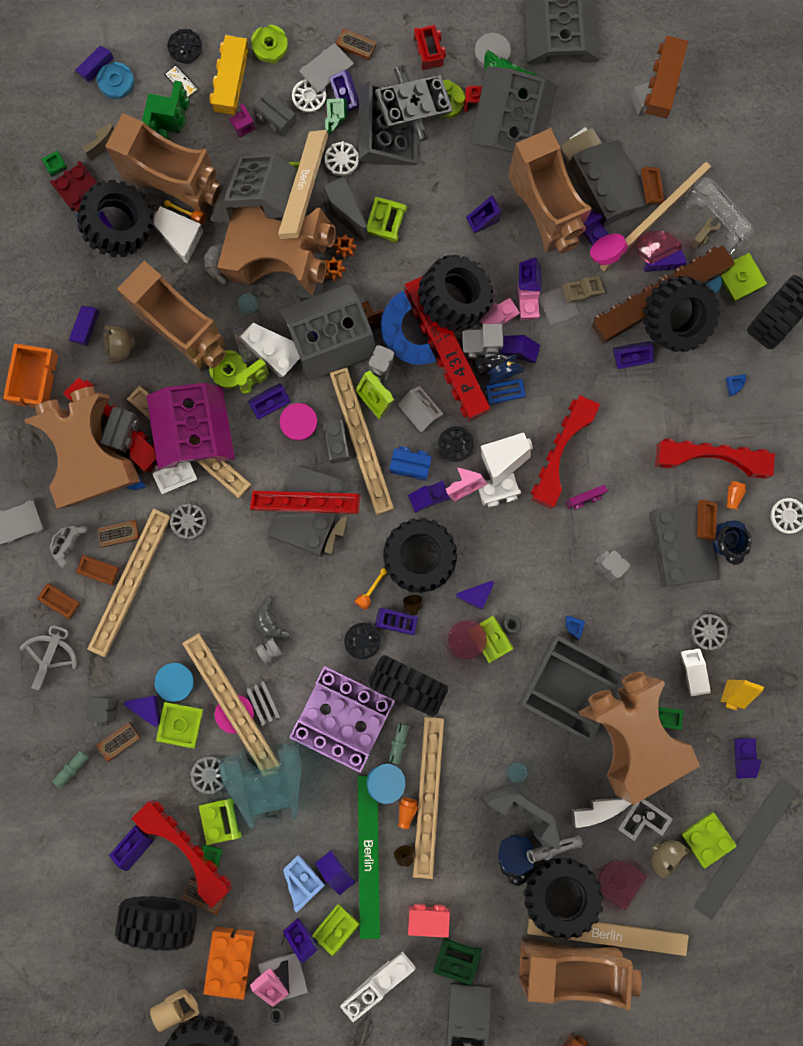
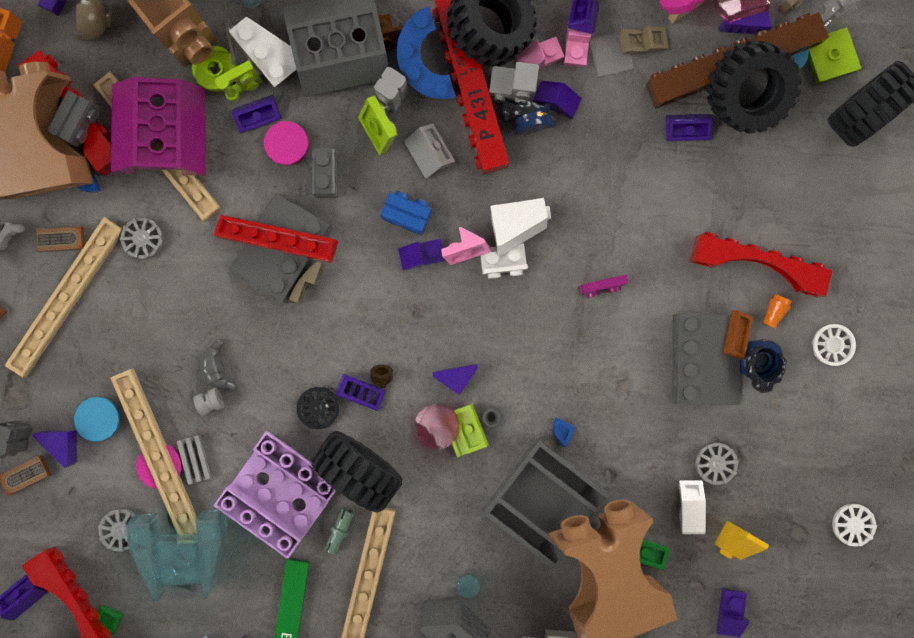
camera: 15 degrees right, 5 degrees up
(97, 570) = (30, 277): dark orange tile -> none
(174, 477) = (133, 185): white bracket -> none
(179, 725) = (95, 468): lime plate -> none
(213, 821) = (117, 584): lime plate -> none
(361, 441) = (355, 177): tan tile -> none
(364, 600) = (327, 361): hinge -> none
(385, 783) = (316, 573): dark azure tile -> none
(407, 811) = (335, 608): orange cone -> none
(420, 529) = (368, 314): black tyre -> none
(456, 444) = (463, 198): black wheel -> none
(507, 398) = (527, 155): blue tile -> none
(549, 487) = (562, 266): red arch -> none
(611, 565) = (618, 369): light grey brick -> none
(735, 383) = (801, 180): blue tile -> none

